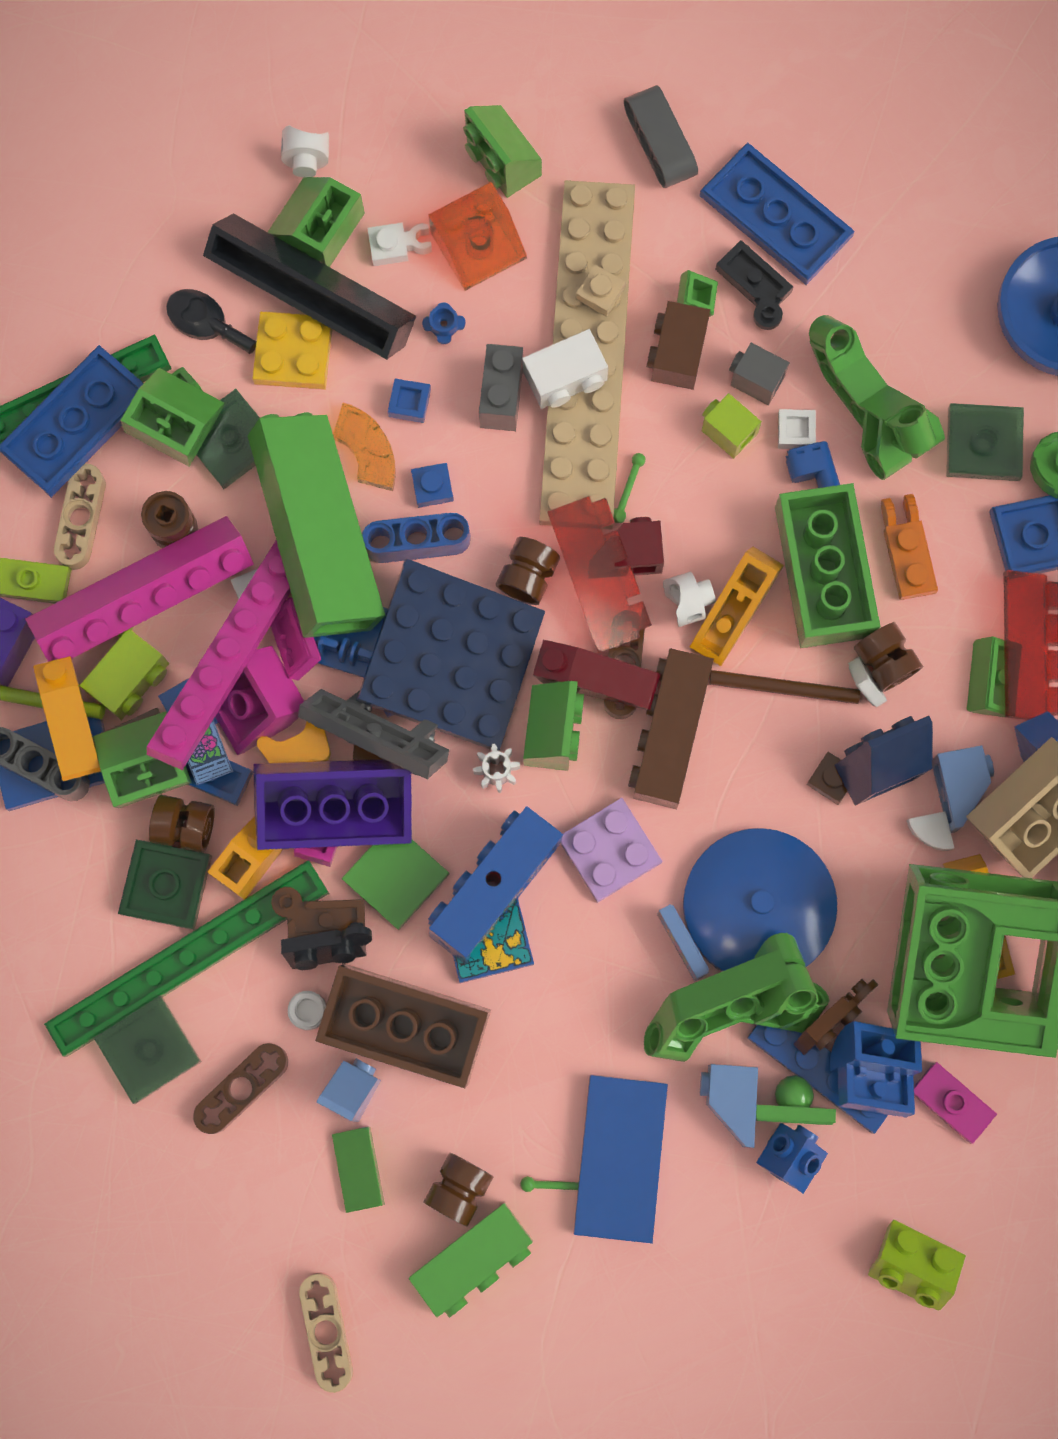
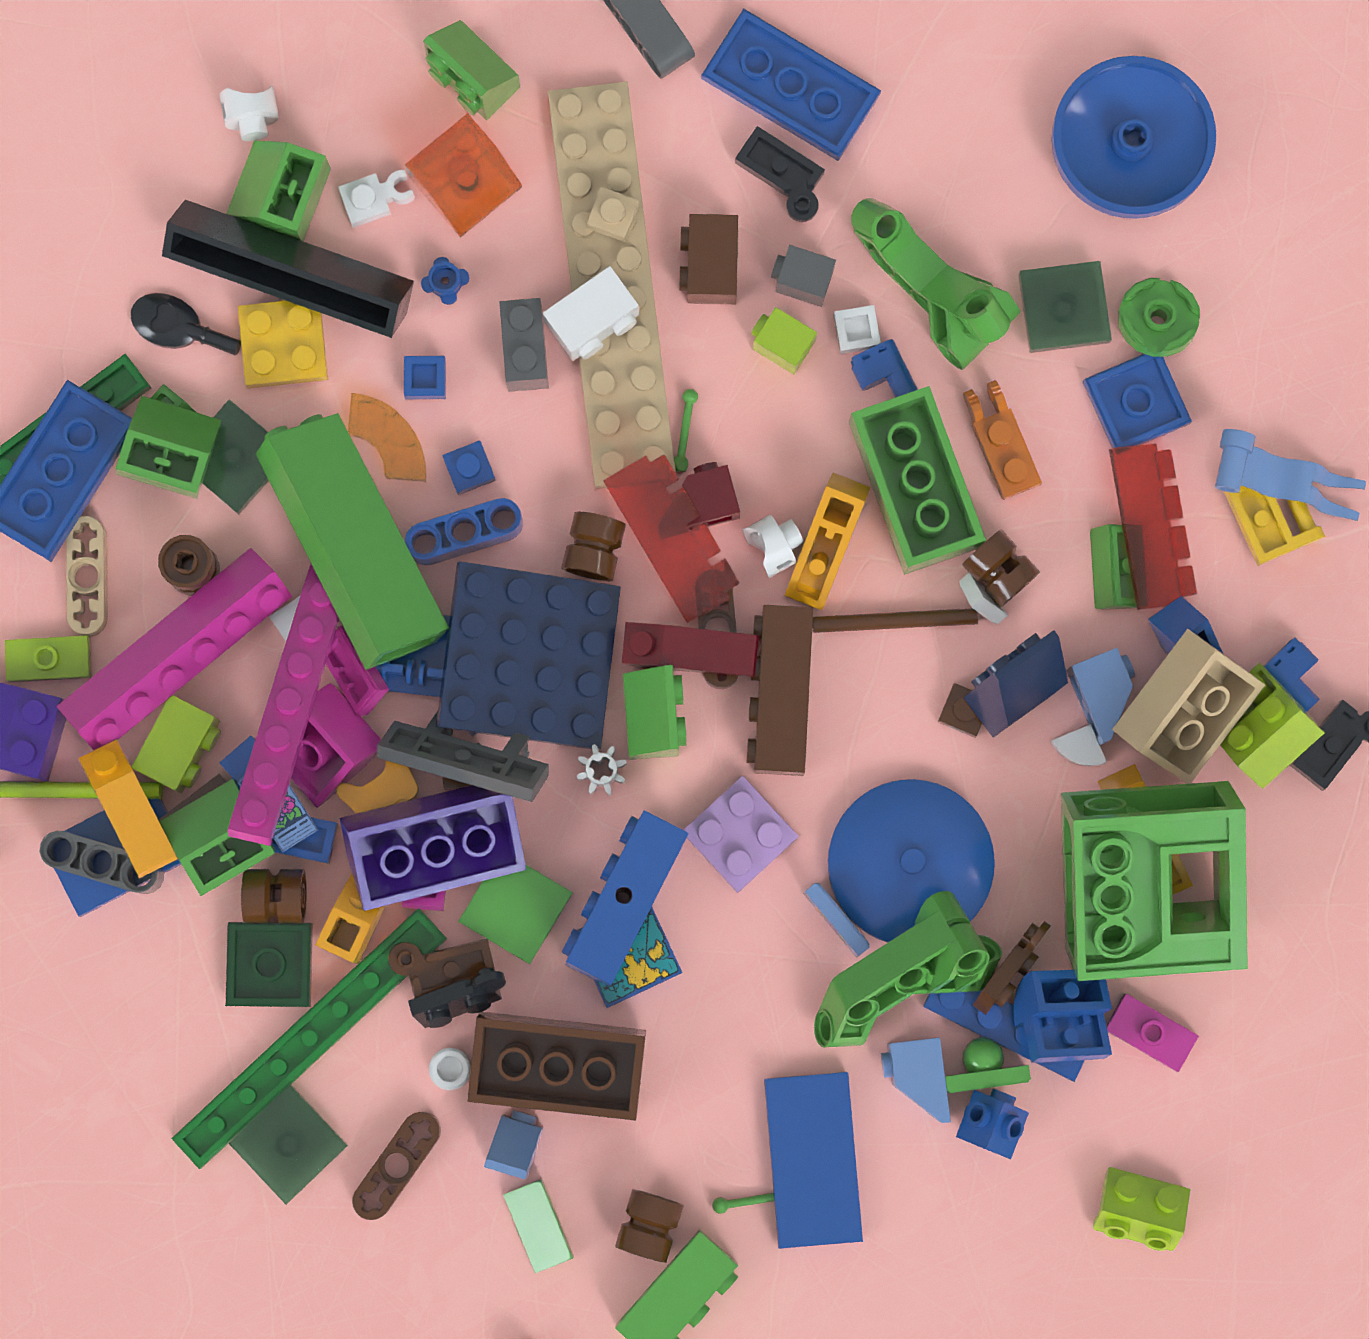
camera: 15 degrees left, 5 degrees up
(697, 290) = (719, 195): bright green brick -> none

